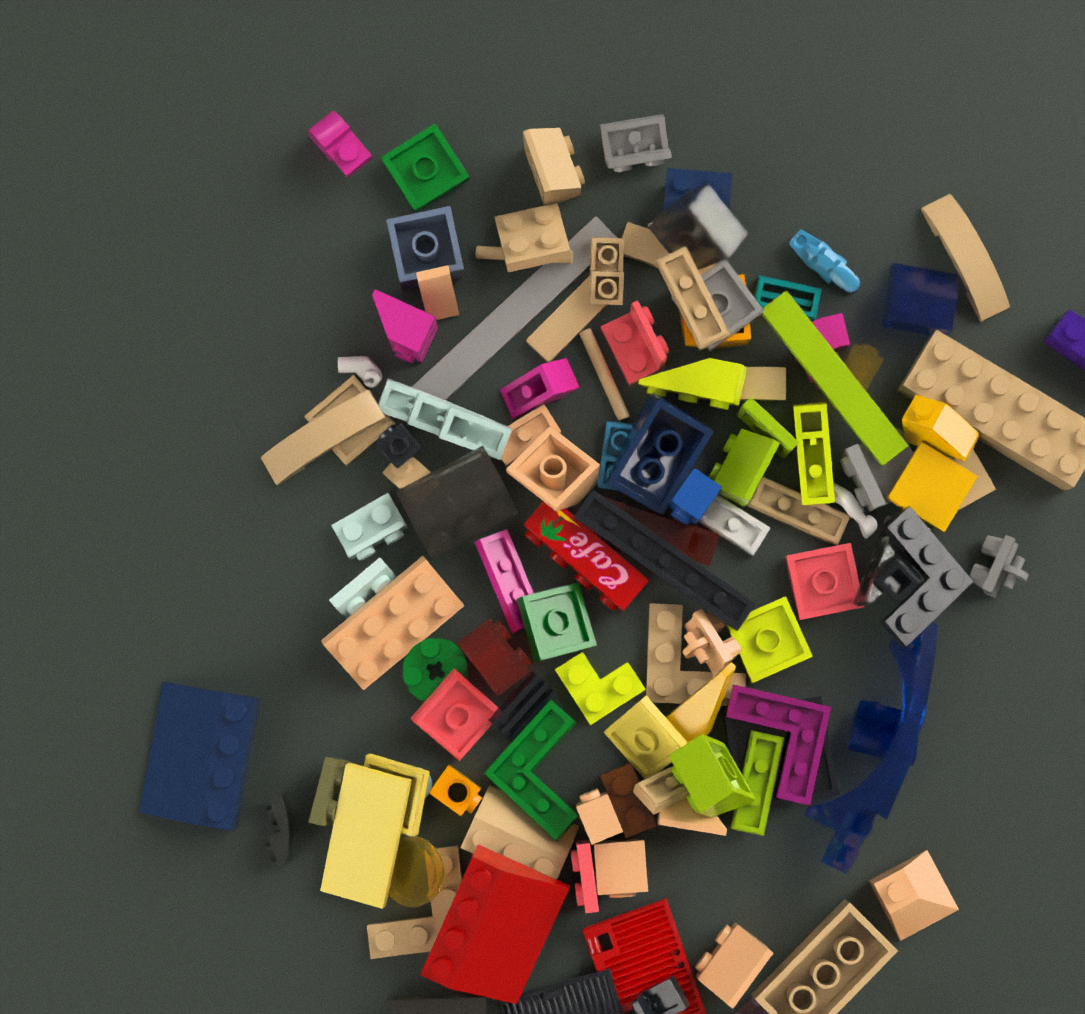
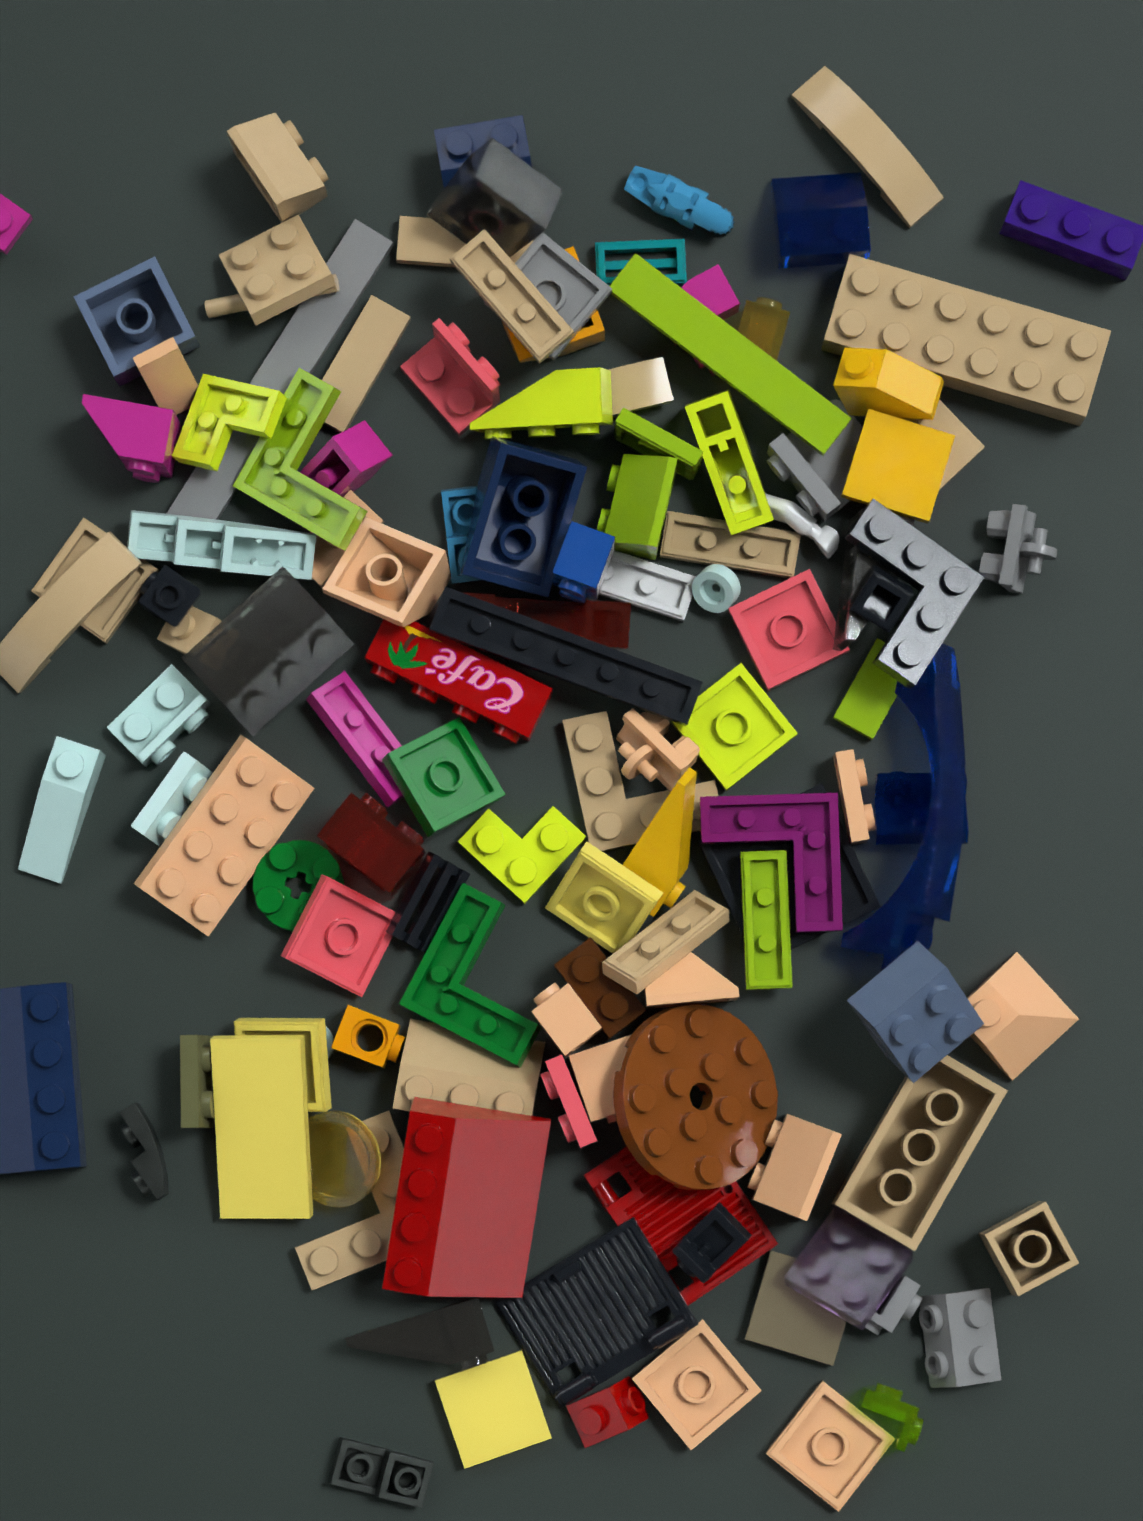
camera: 15 degrees left, 0 degrees up
(284, 574) = (60, 808): none -> light aqua slope
(363, 367) = (94, 504): white arm -> none
(425, 168) = (107, 214): green plate -> none
(467, 324) = (219, 409): none -> neon yellow plate
(493, 377) = (273, 464): none -> lime plate
(604, 374) = (422, 430): tan bar -> none
(606, 270) = (388, 289): tan slope -> none
(635, 142) = (382, 106): light grey bracket -> none
(645, 892) = (654, 1106): none -> dark orange plate
(710, 777) = (699, 925): lime slope -> none
(781, 539) = (716, 588): none -> light aqua tile
(841, 697) = (850, 777): none -> light nougat plate
(848, 879) = (915, 1011): none -> sand blue brick
(868, 642) = (868, 697): none -> lime tile

